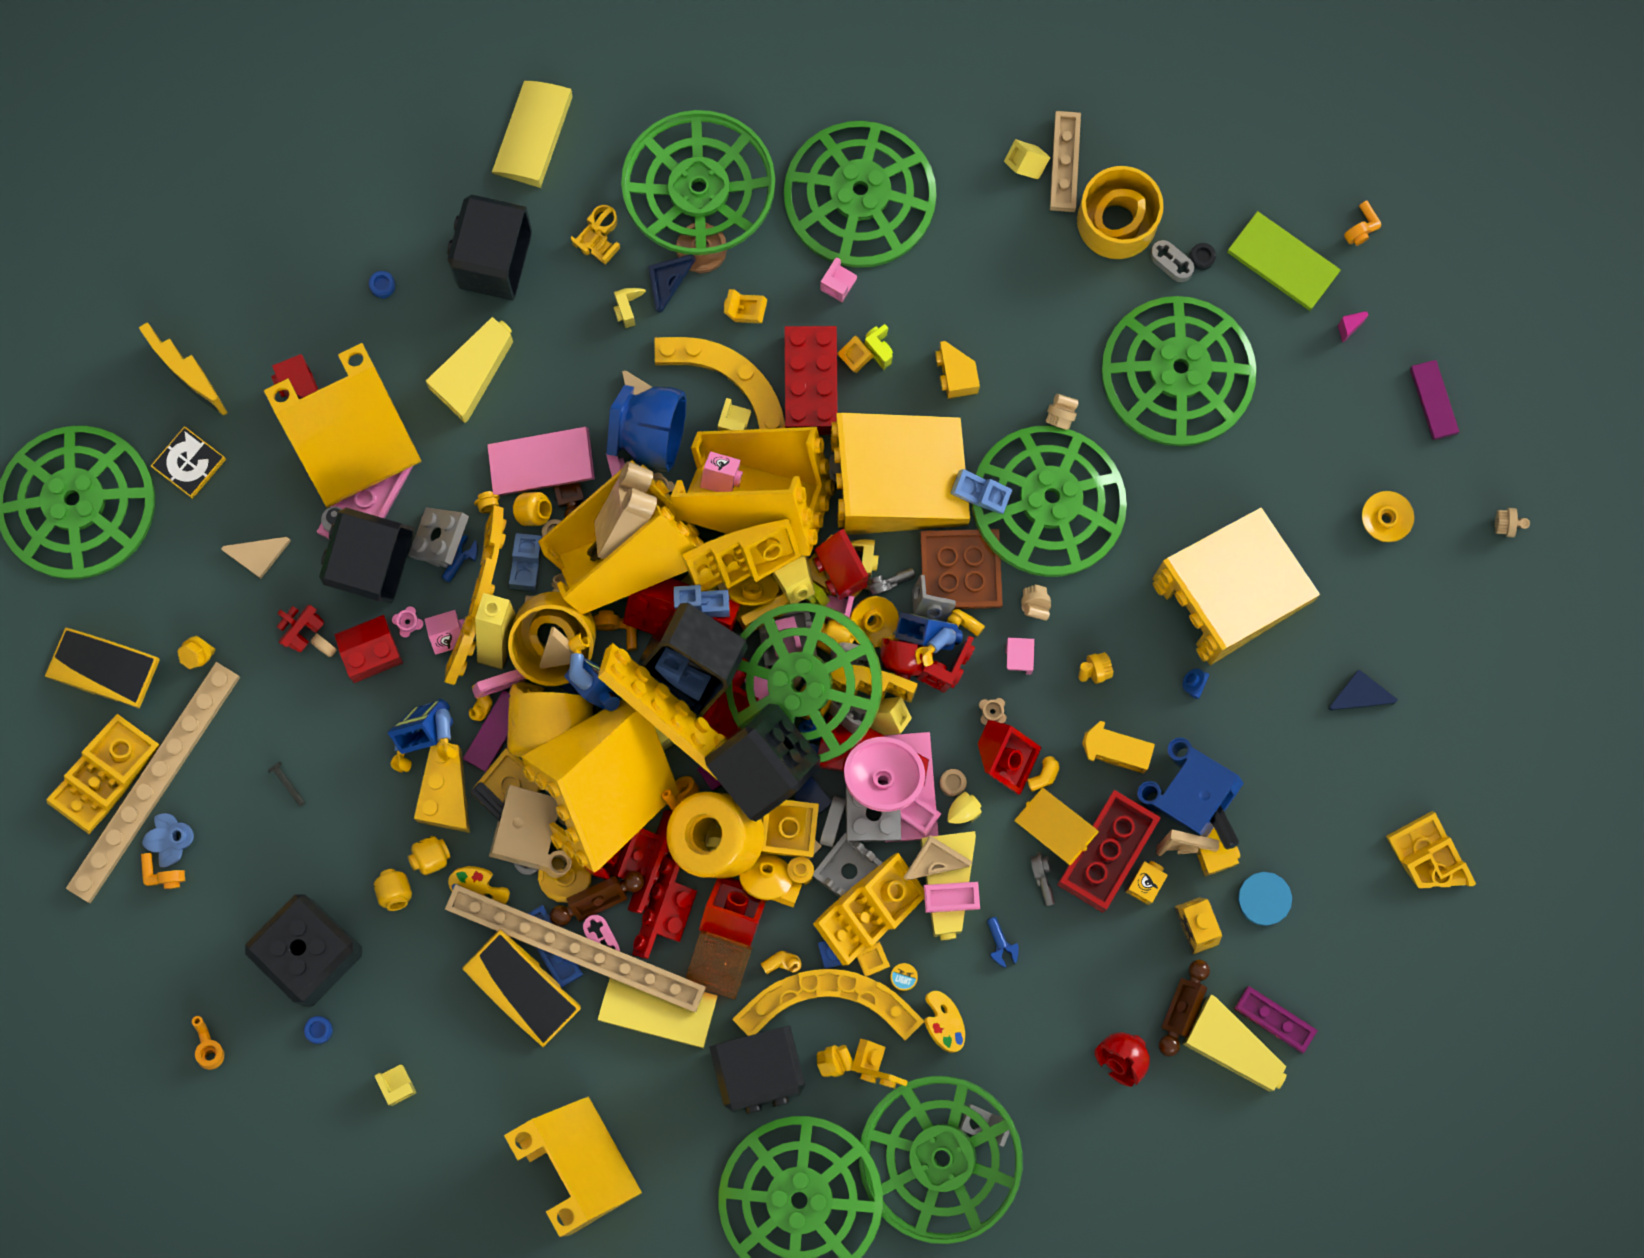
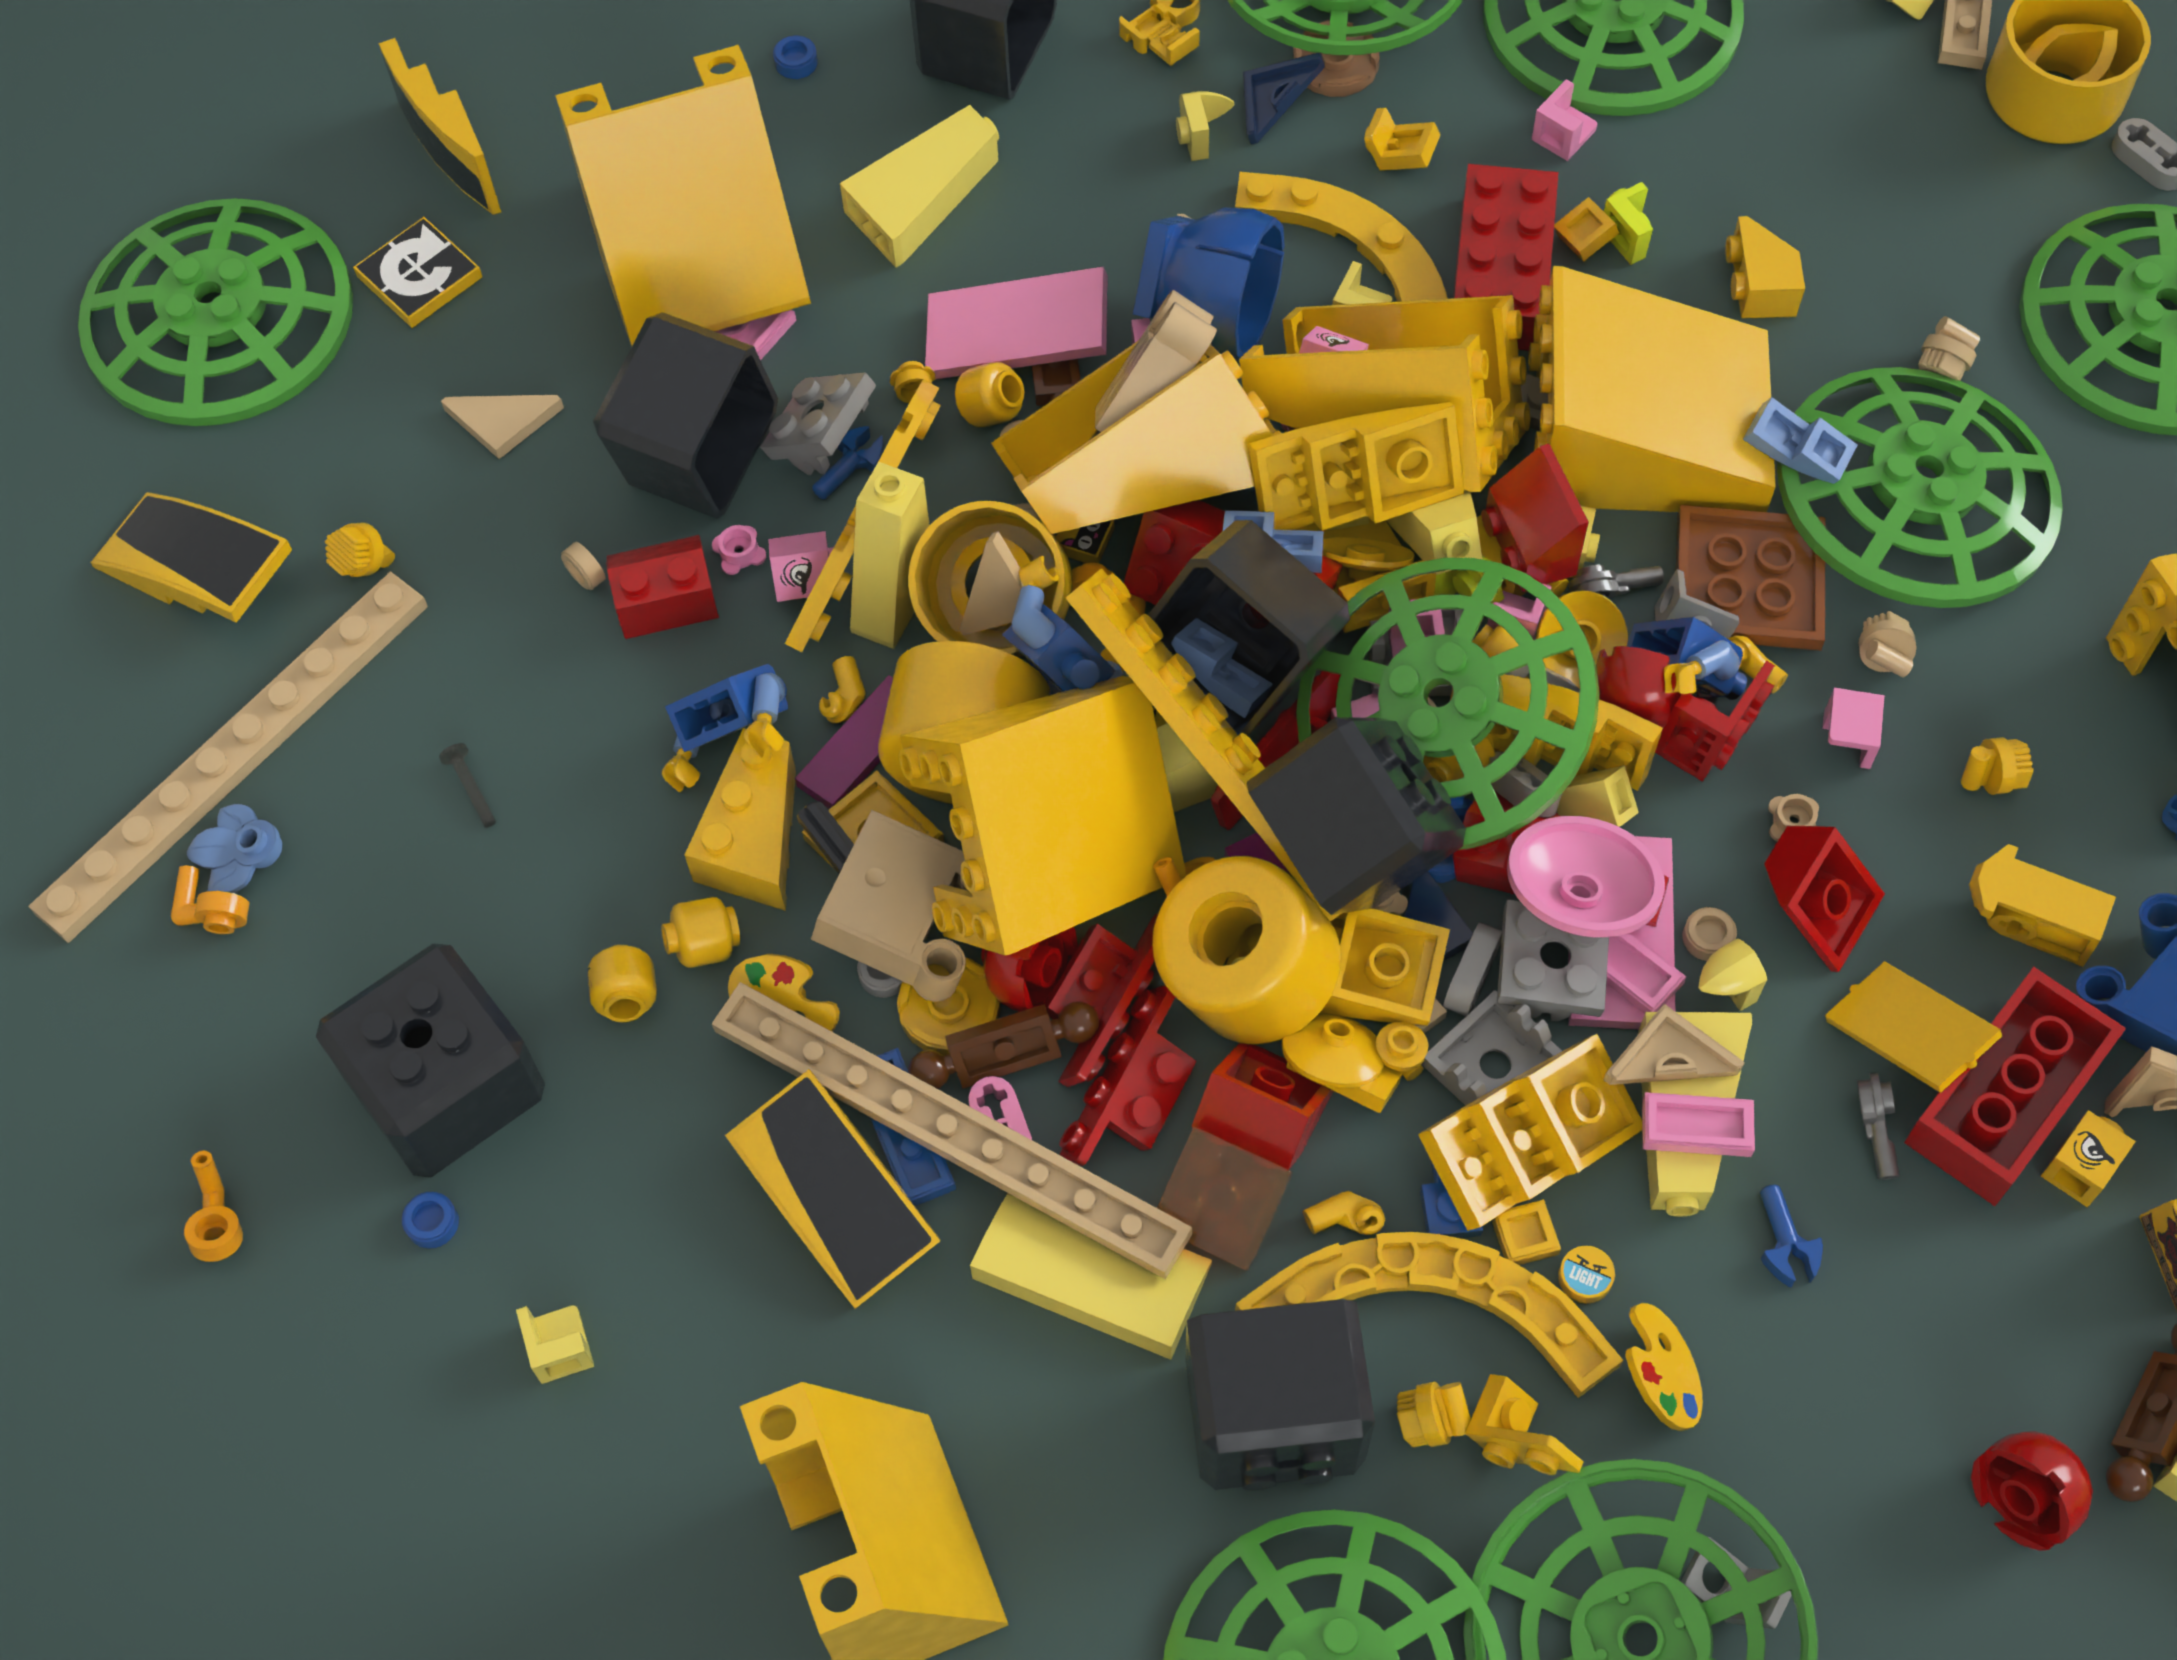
camera: 15 degrees right, 15 degrees down
(103, 773) = (145, 726): yellow slope -> none
(292, 637) = (531, 545): red hips -> none
(497, 683) = (873, 654): bright pink tile -> none
(525, 562) = (964, 474): medium blue slope -> none
(1047, 776) = (1895, 942): yellow arm -> none

